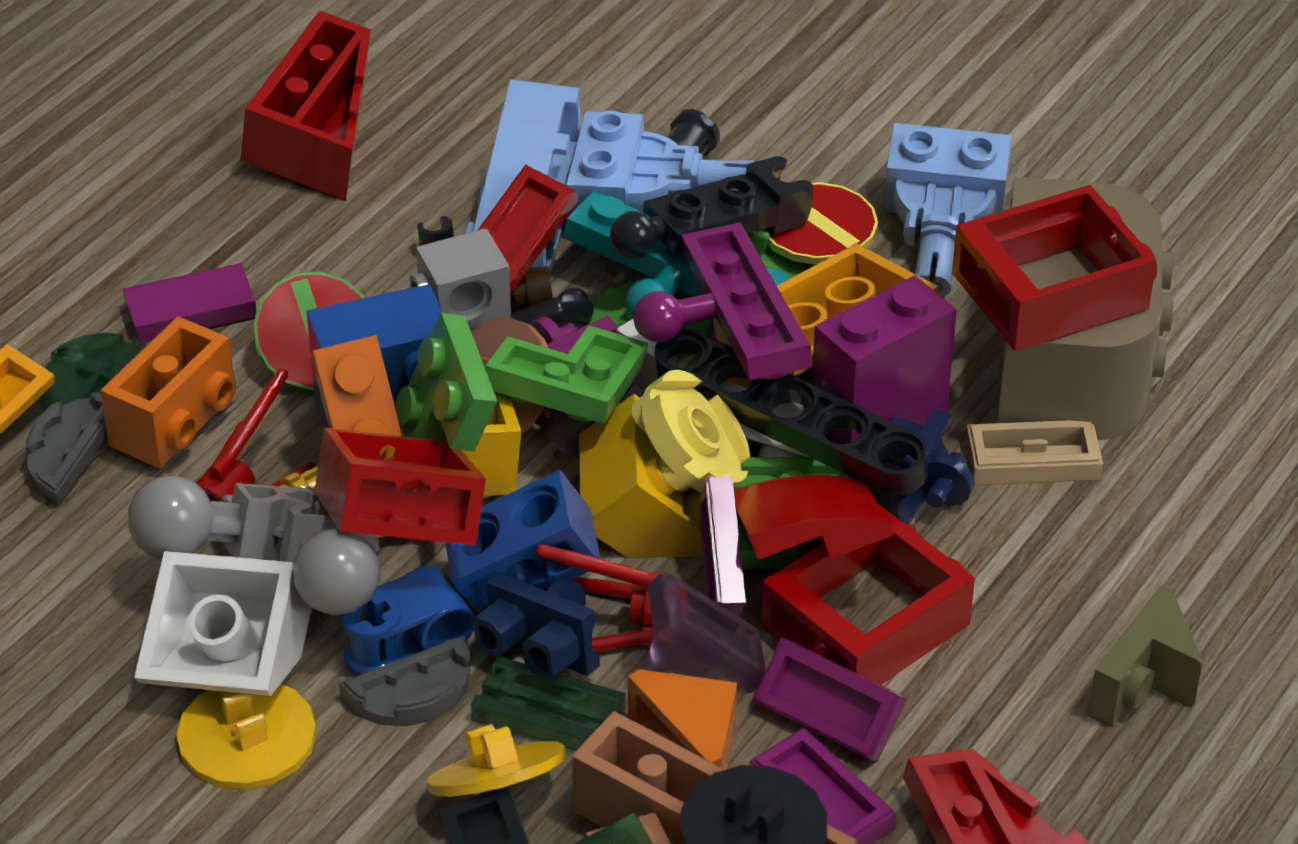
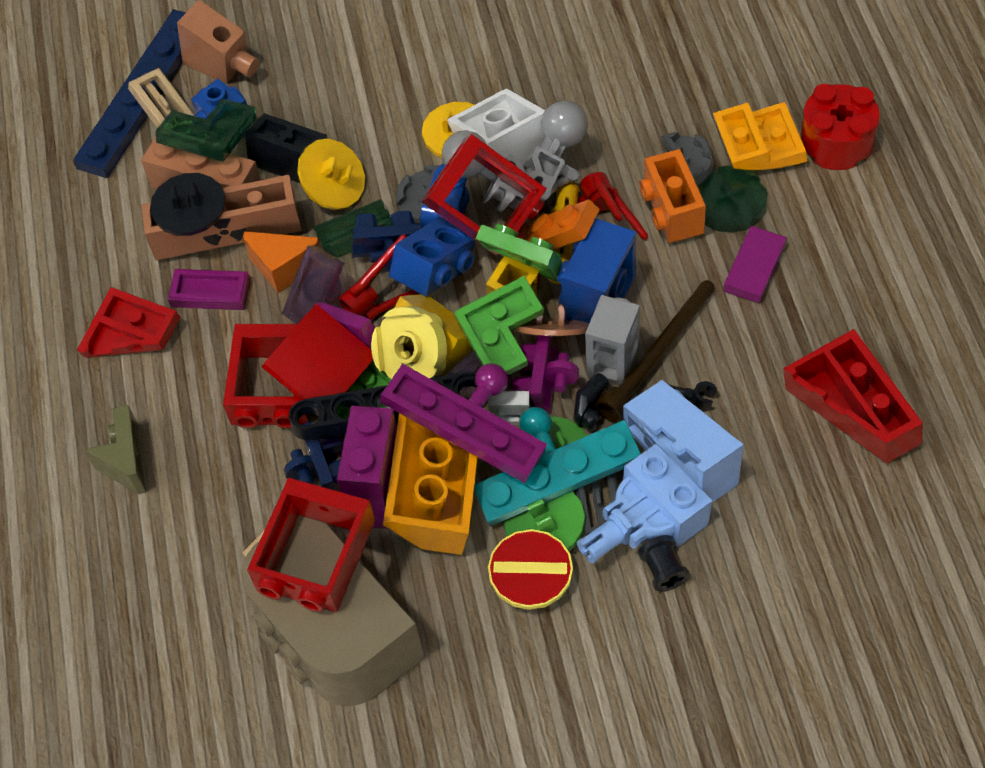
camera: 140 degrees right, 15 degrees up
(282, 324) = (668, 283): red piece -> none
(528, 219) = (640, 394): red tile -> none
(752, 199) = (562, 489): black plate -> none
(829, 699) = (224, 321): magenta tile -> none
(943, 181) = (488, 651): light blue brick -> none

